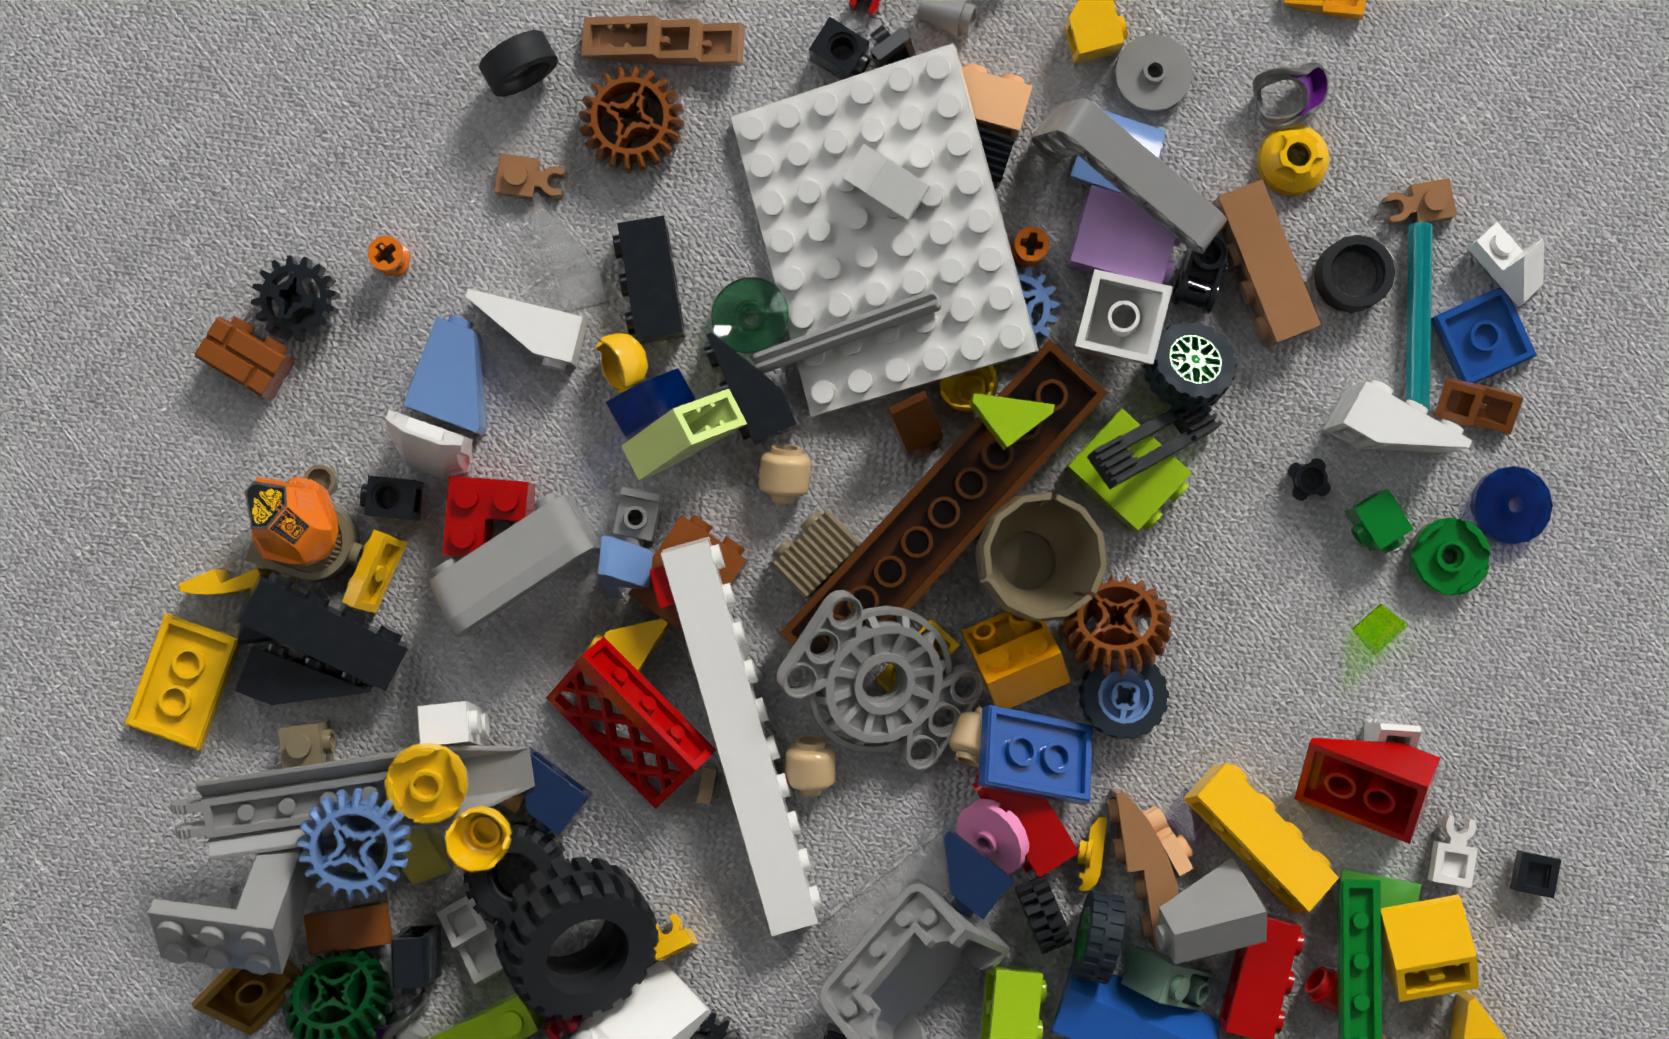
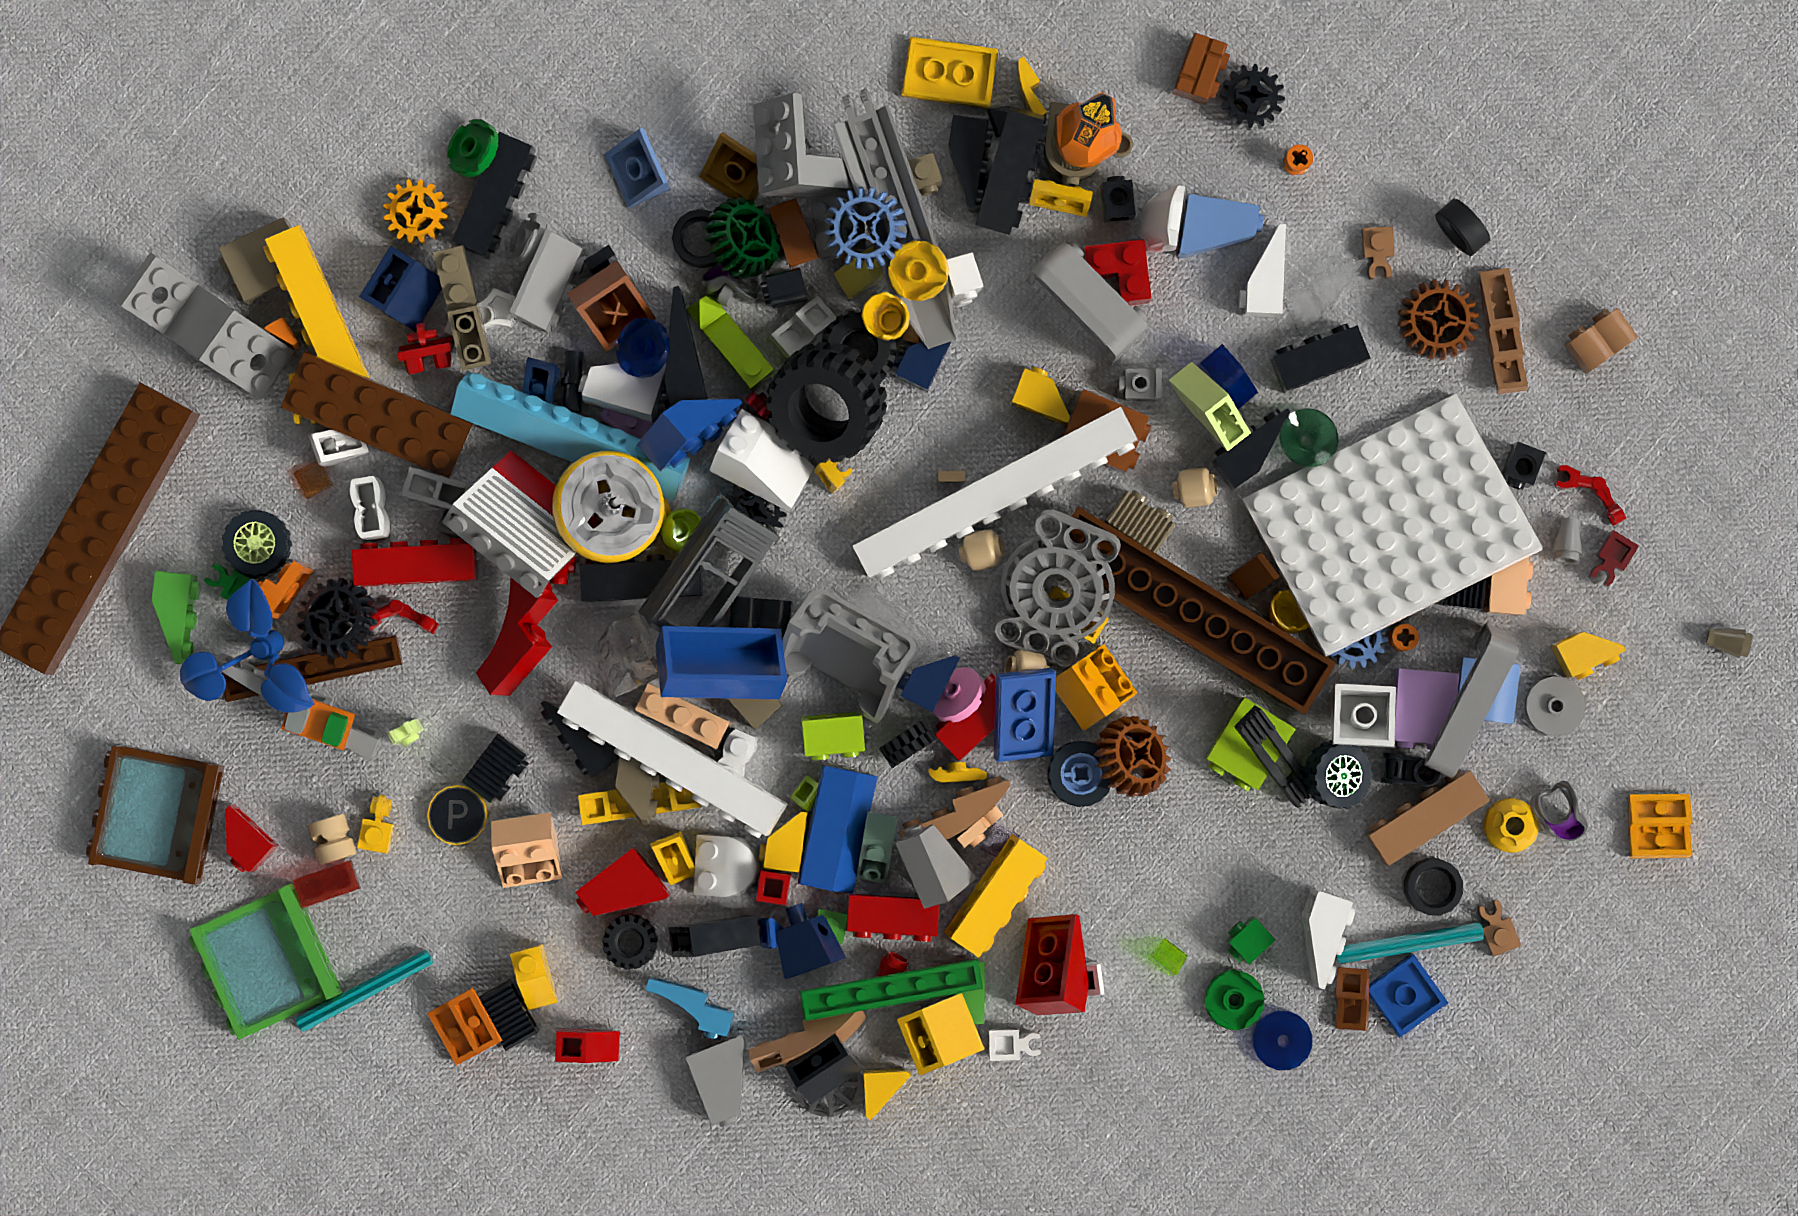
camera: 80 degrees right, 0 degrees up
(622, 360) = (1255, 349): yellow hair -> none
(623, 566) = (1103, 381): medium blue slope -> none
(642, 710) = (1000, 417): red fence -> none
(662, 587) = (1094, 413): red tile -> none
(847, 331) = (1311, 511): light grey axle -> none
(886, 181) = (1428, 518): white slope -> none
(891, 47) = (1532, 503): black tile -> none
(1008, 417) = (1272, 643): lime slope -> none
(1040, 557) = (1173, 686): dark tan plate -> none
(1099, 937) = (900, 787): black wheel -> none
(1319, 483) = (1278, 886): black plate -> none
(1514, 270) = (1462, 1006): white slope -> none
(1535, 874) = (1009, 1108): black plate -> none

